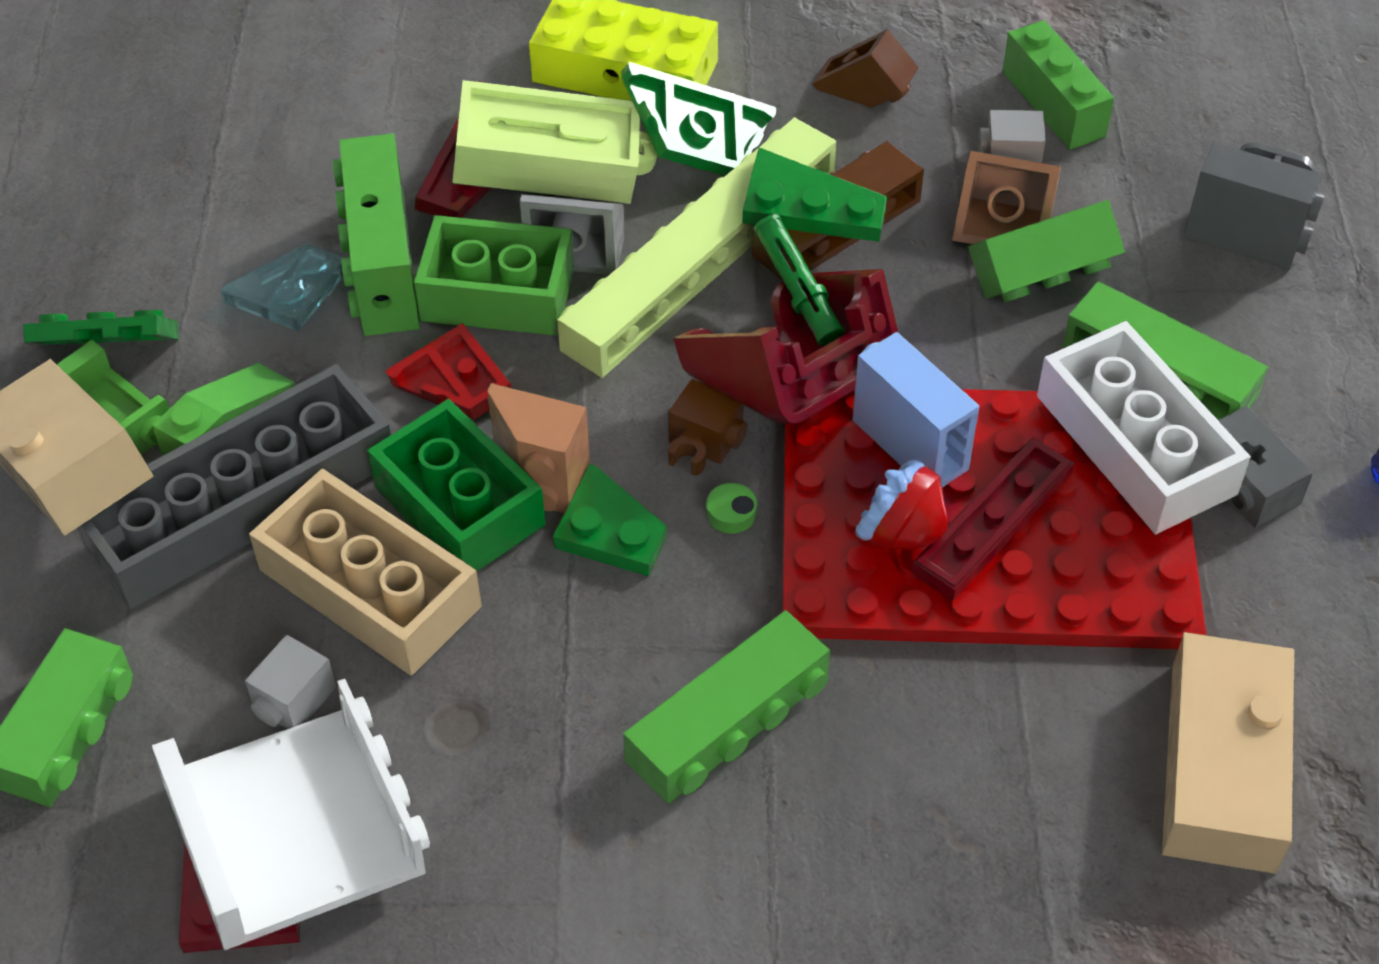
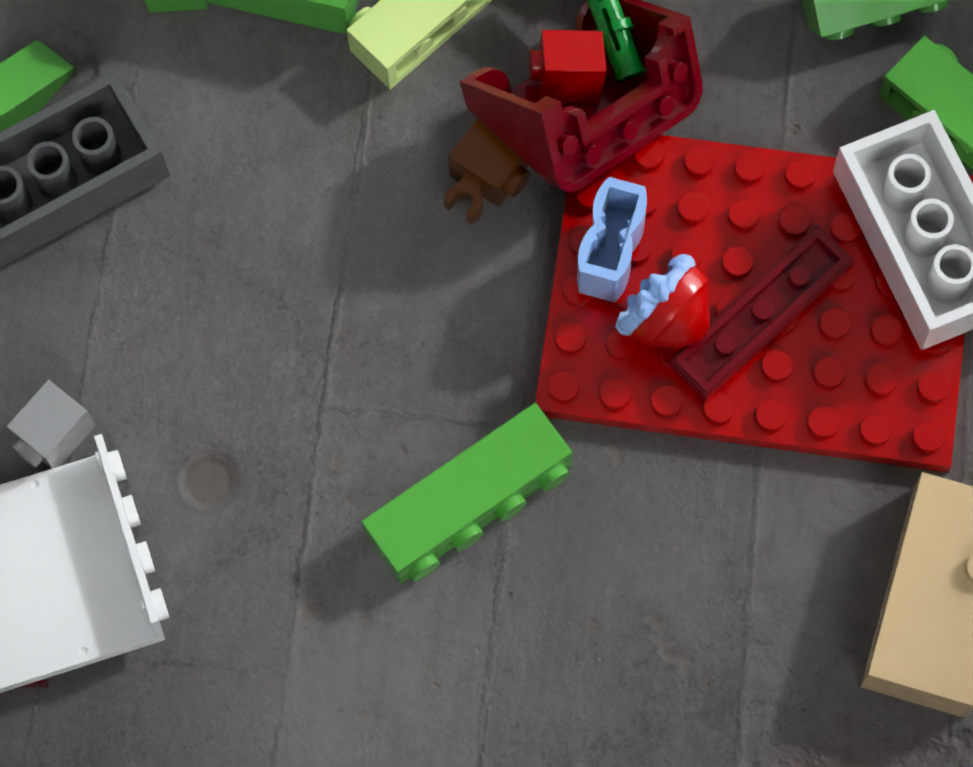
camera: 10 degrees right, 20 degrees up
(367, 571) = (130, 310): tan brick -> none
(450, 369) = (236, 77): red wing -> none
(457, 486) = (226, 223): green brick -> none
(544, 439) = (317, 187): nougat slope -> none
(610, 526) = (378, 272): green wing -> none
(731, 508) = (502, 265): bright green tile -> none
(779, 311) = (569, 65): none -> red brick
(839, 459) = (609, 243): none -> light blue brick
(914, 408) = (695, 193): light blue brick -> none

